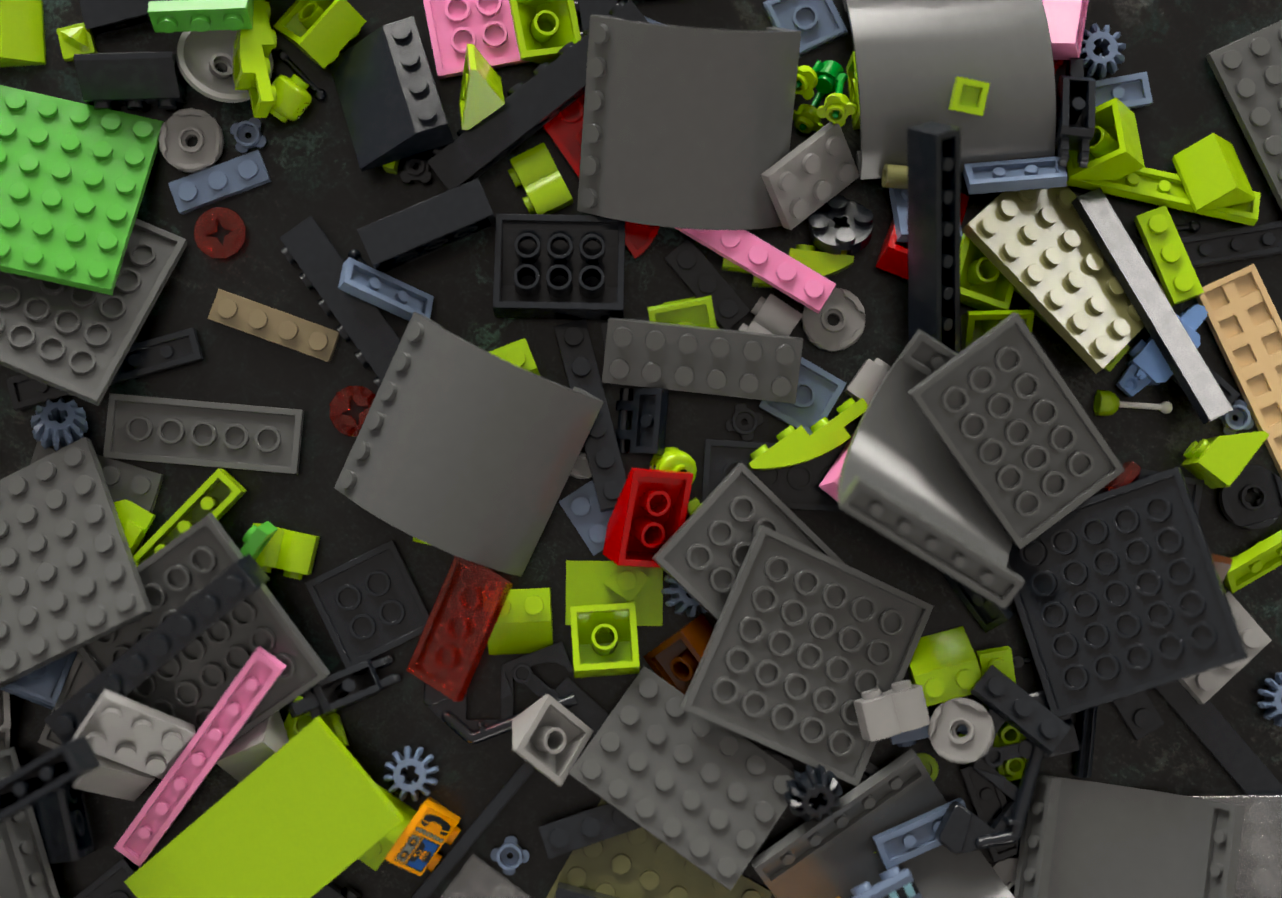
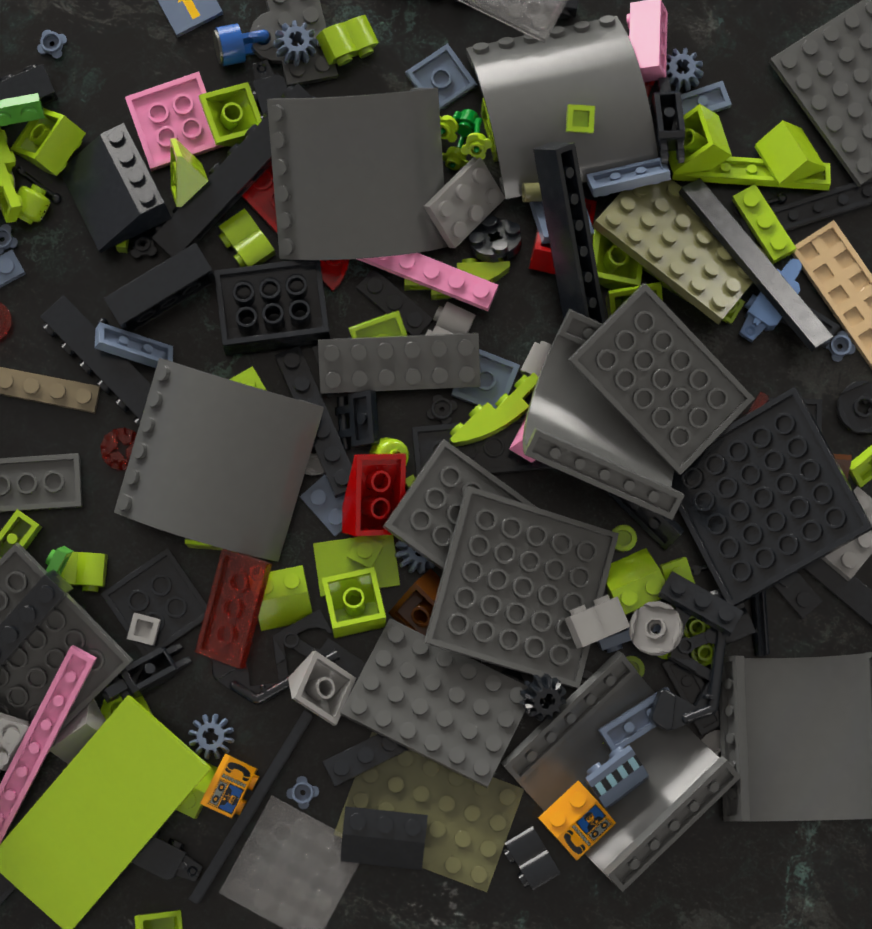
camera: 10 degrees left, 5 degrees down
(349, 635) = (143, 629): none -> light grey plate
(846, 332) = (508, 329): light grey plate -> none
(942, 611) = (626, 539): none -> lime tile
(1108, 403) = (734, 349): hinge -> none
(1222, 457) = (831, 376): lime slope -> none

